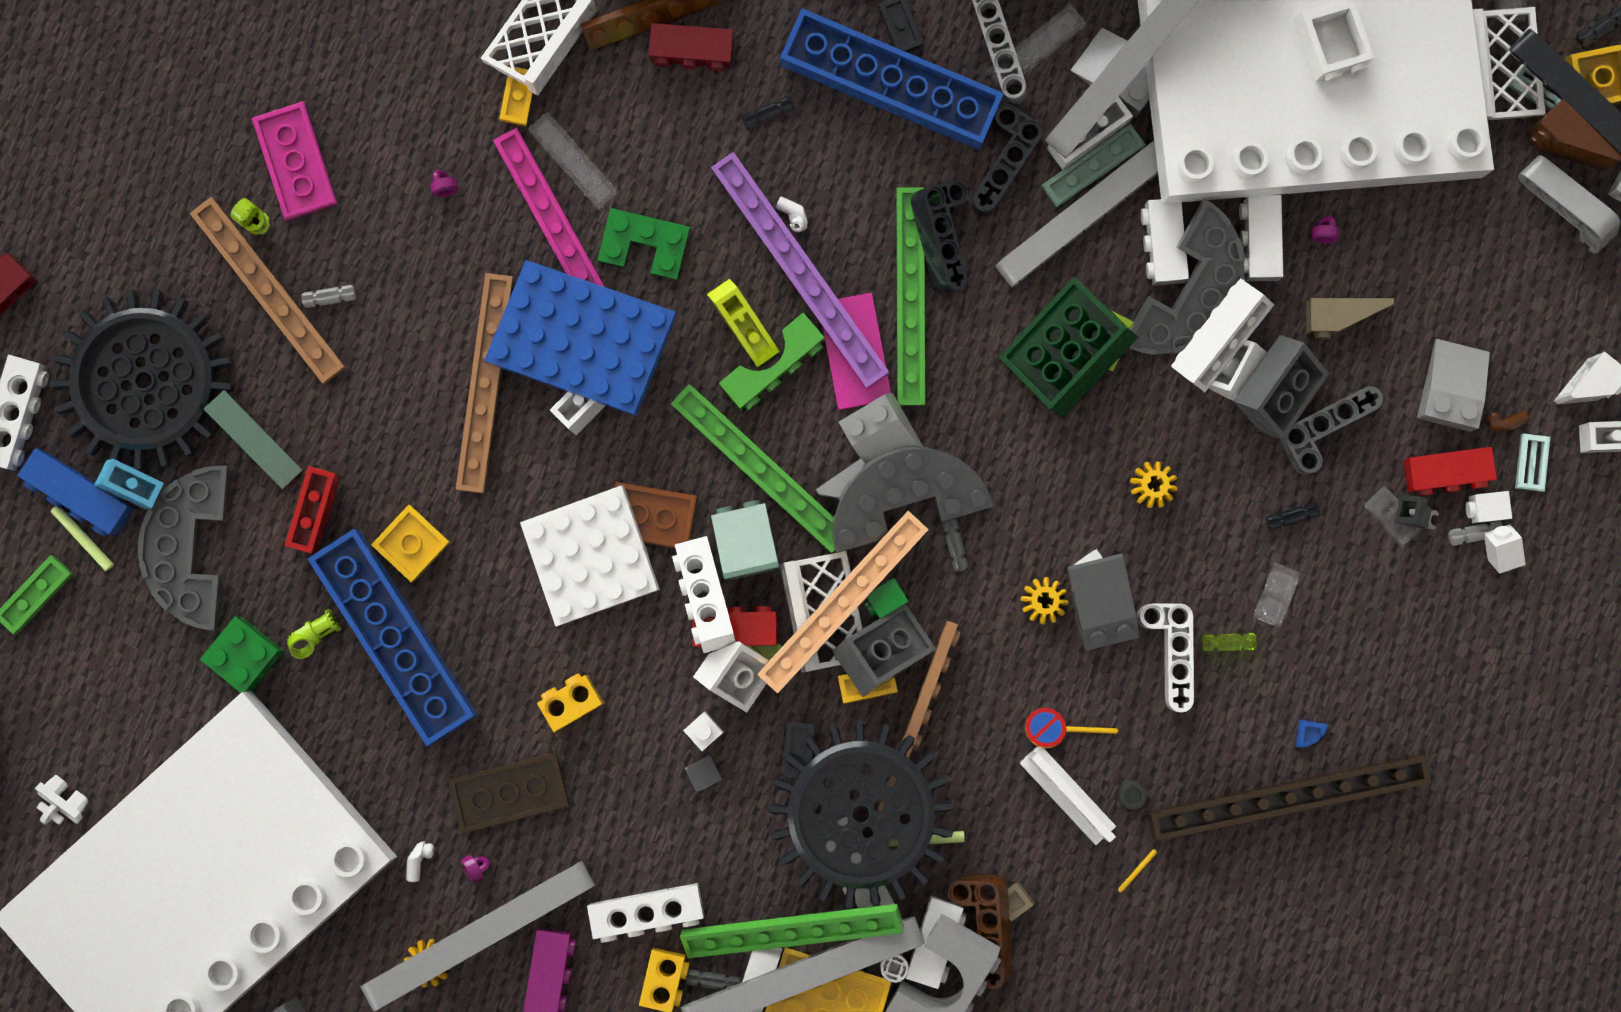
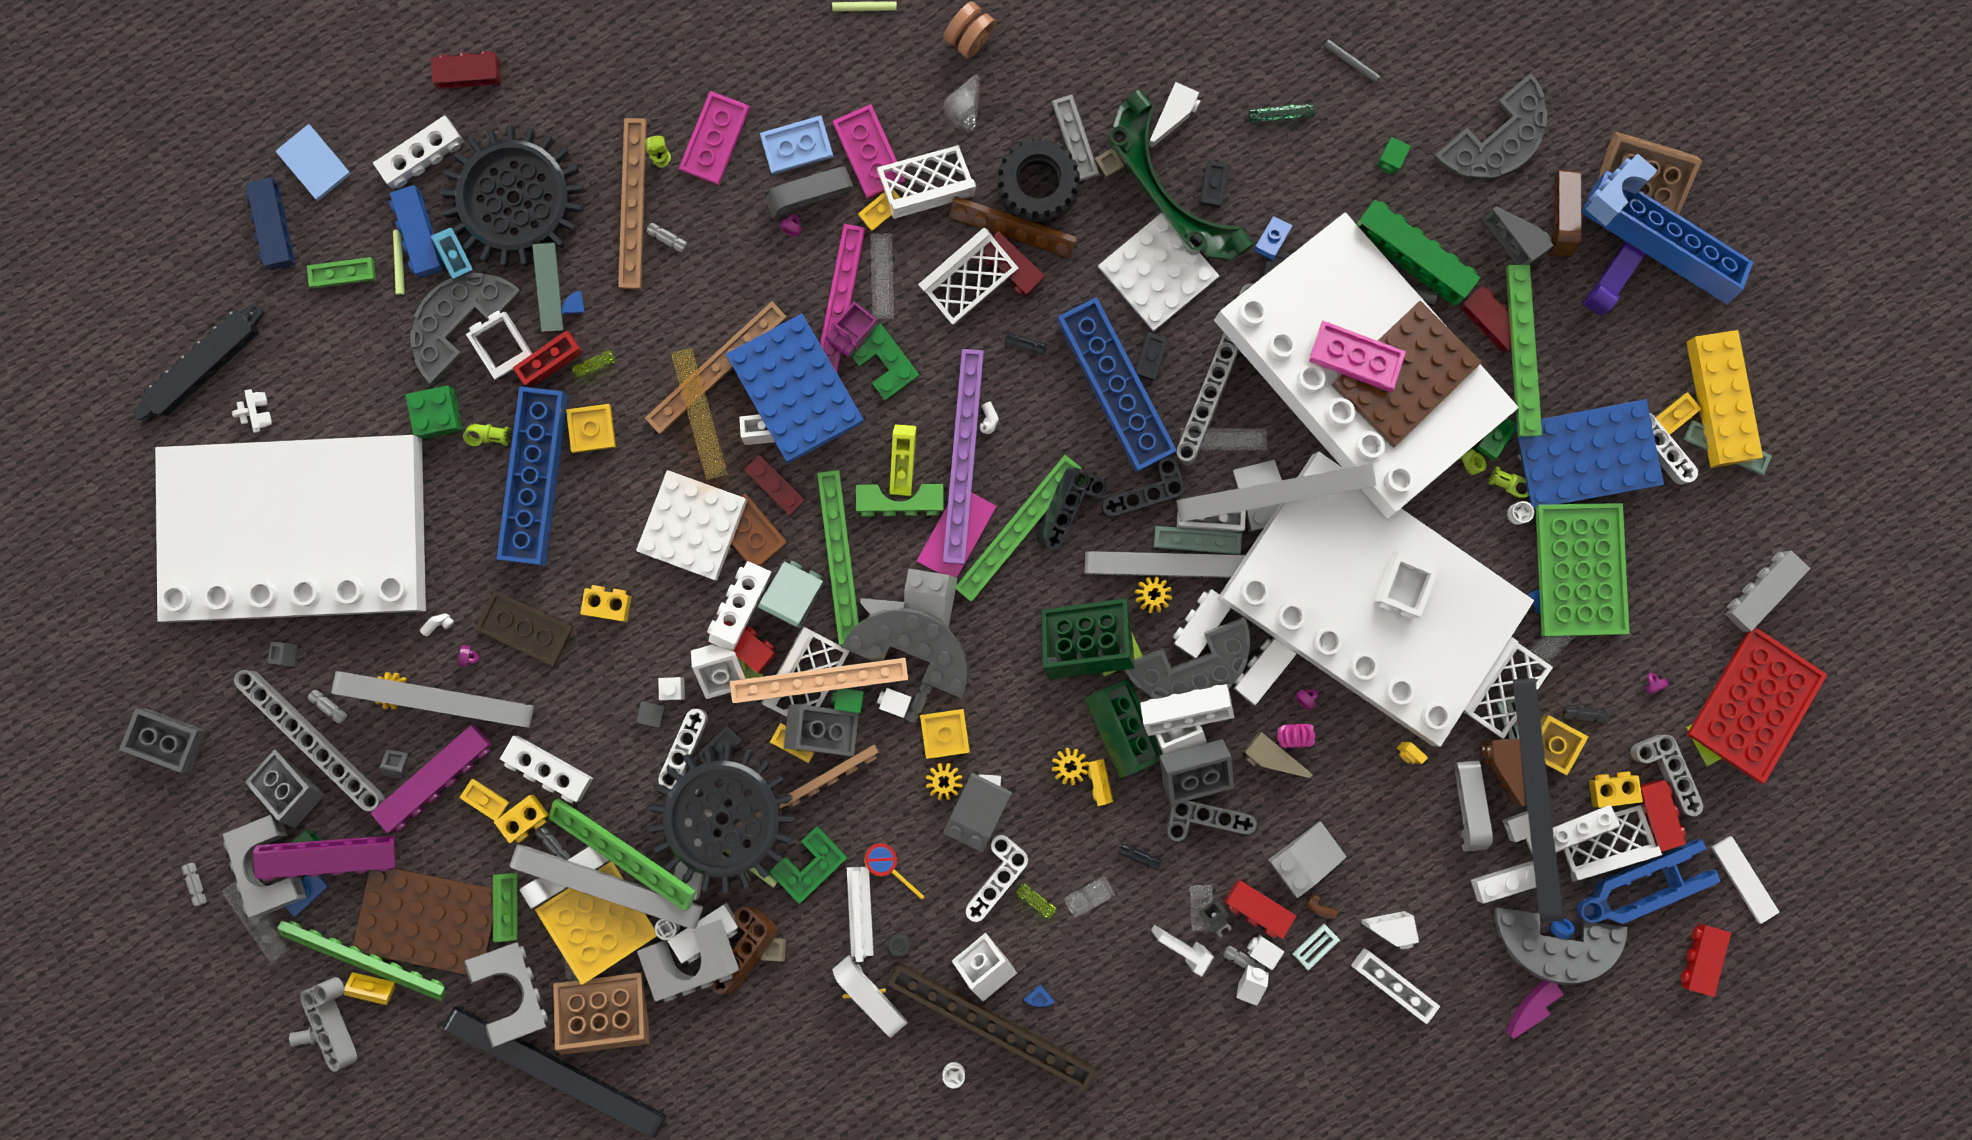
camera: 35 degrees right, 0 degrees up
(218, 536) = (479, 328): none -> white window
(291, 436) = (573, 304): none -> blue tile
(360, 478) = (594, 364): none -> clear neon green axle
(381, 102) = (796, 145): none -> light blue tile
(430, 137) = (808, 190): none -> dark grey beam
(453, 49) = (866, 148): none -> dark pink tile
(507, 439) = (699, 413): none -> clear yellow brick
(588, 236) = (851, 329): none -> magenta piece
(610, 992) = (484, 799): none -> yellow plate
(635, 88) = (953, 265): none -> white fence
(637, 450) = (774, 485): none -> dark red plate
(761, 780) = (680, 747): none -> white beam
(932, 564) = (894, 702): none -> white brick
(990, 813) = (802, 883): none -> green plate
(1006, 554) = (944, 733): none -> yellow plate
(1085, 248) = (1158, 600): none -> yellow gear
(1145, 868) = (868, 996): none -> white beam
(1174, 405) = (1122, 728): none -> dark green slope
(1202, 482) = (1098, 775): none -> yellow plate
(1232, 747) = (984, 967): none -> white slope
(1293, 879) = (953, 1078): none -> white wheel
(1346, 274) = (1296, 736): none -> dark pink gear
(1428, 564) = (1196, 957): none -> white fence
(1470, 199) = (1411, 753): none -> yellow plate

